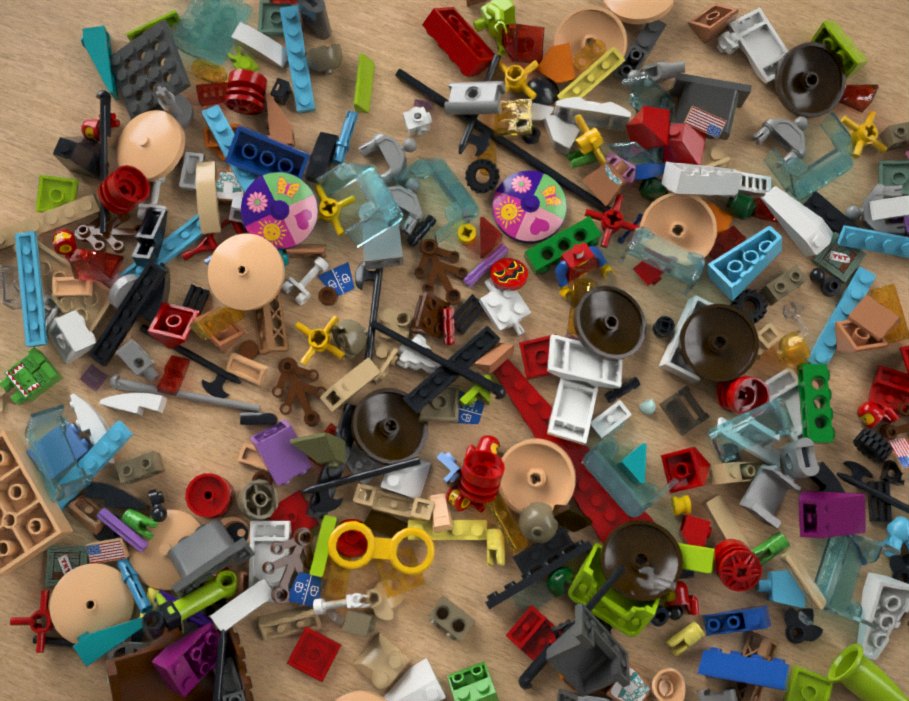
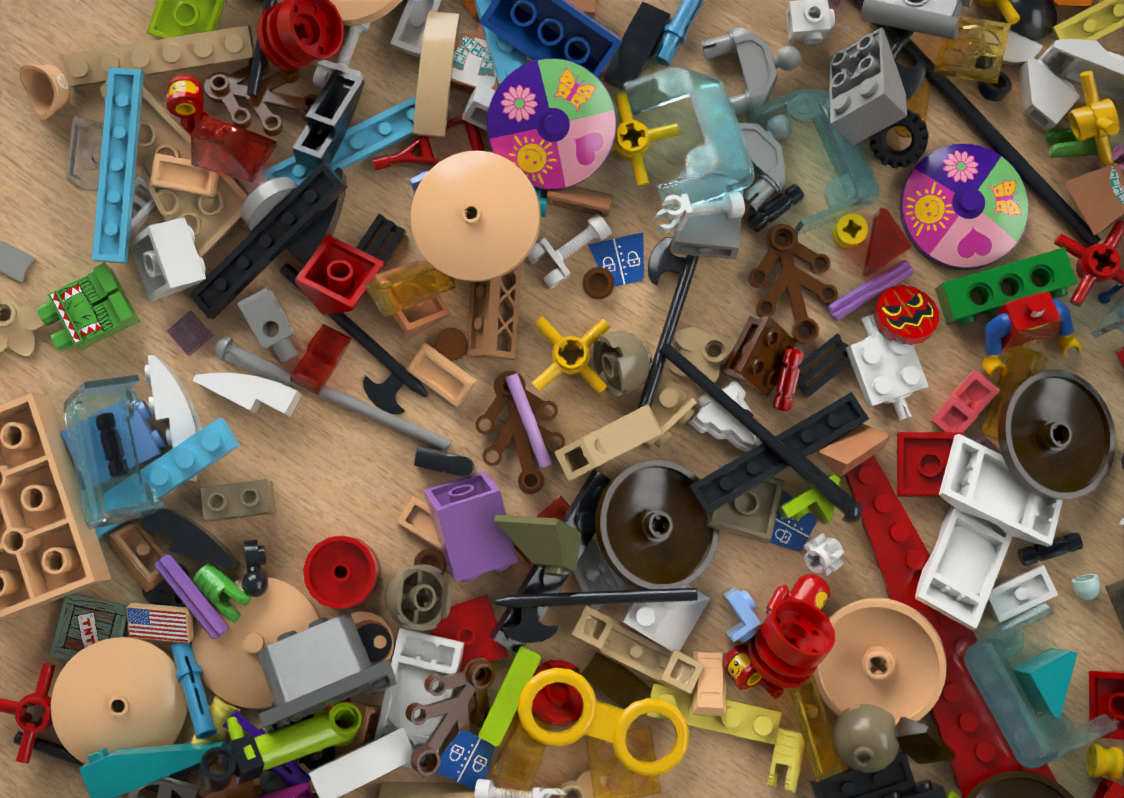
camera: 10 degrees right, 5 degrees up
(57, 450) = (112, 444): none -> black axle
(302, 383) = (528, 420): none -> lavender bar
(391, 233) = (731, 205): none -> white bar
(456, 152) = (865, 88): none -> light grey slope
(490, 422) = (823, 554): none -> white gear
(555, 317) = (965, 403): none -> coral slope

